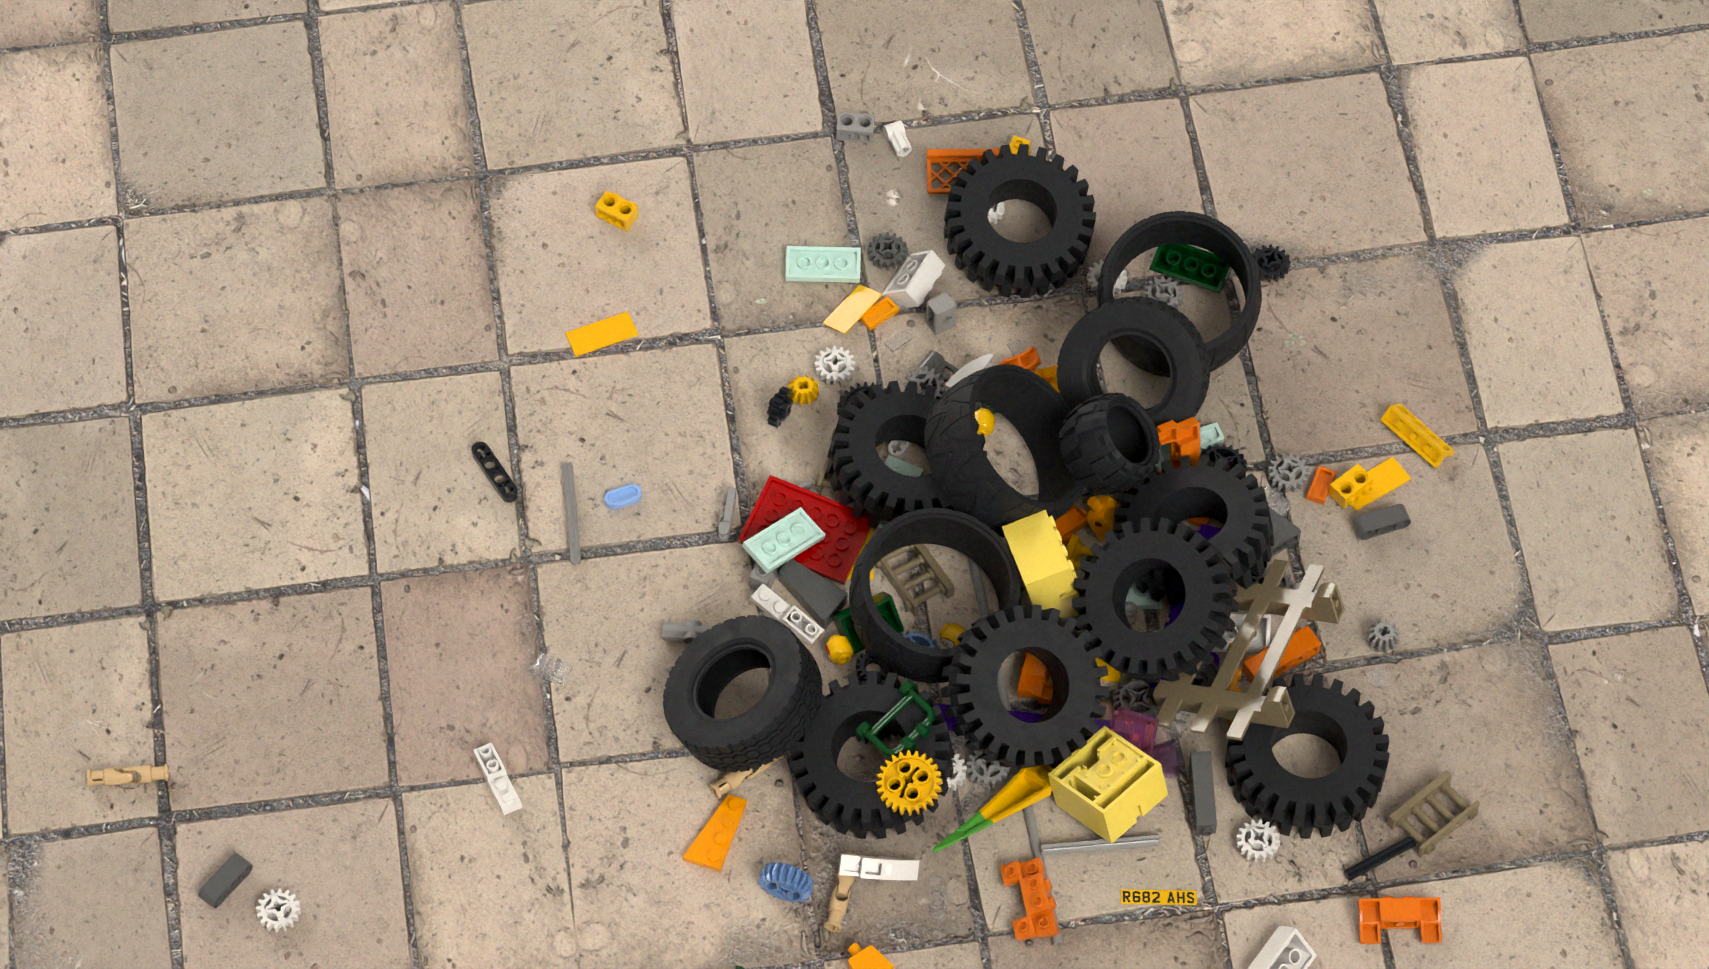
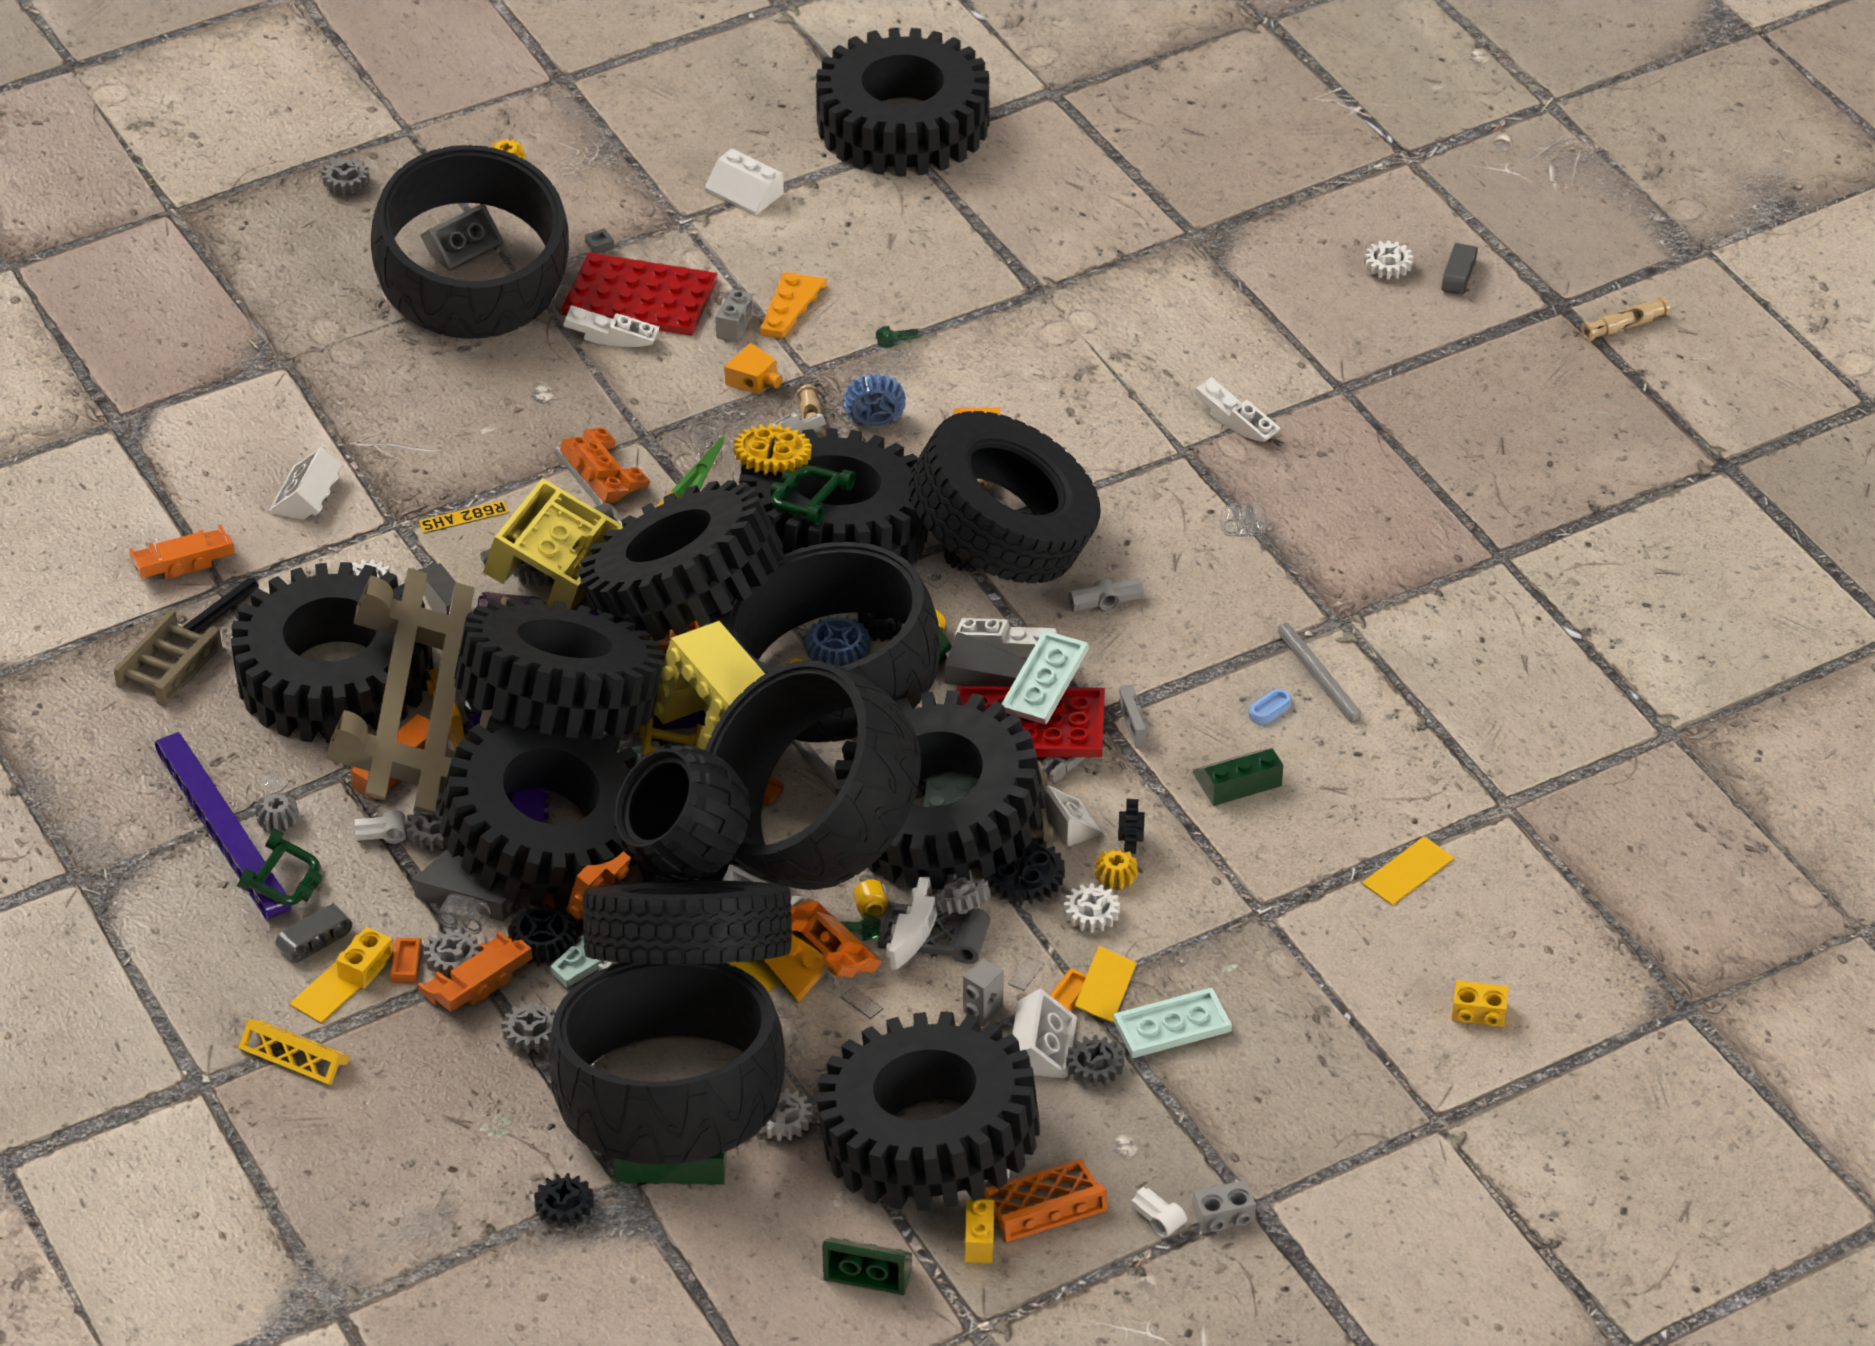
camera: 160 degrees right, 15 degrees down
(497, 470) = (1462, 699): black beam -> none
(677, 441) = (1240, 776): none -> dark green slope
(812, 443) = (1069, 817): none -> white slope
(1095, 154) = (866, 1265): none -> dark green slope
(1137, 727) = (546, 587): clear pink panel -> none
(1252, 396) = (528, 1027): none -> light grey gear
(1273, 442) = (478, 975): none -> orange bracket
(1381, 556) = (279, 846): none -> dark green bar
(1426, 641) = (217, 817): none -> dark purple beam

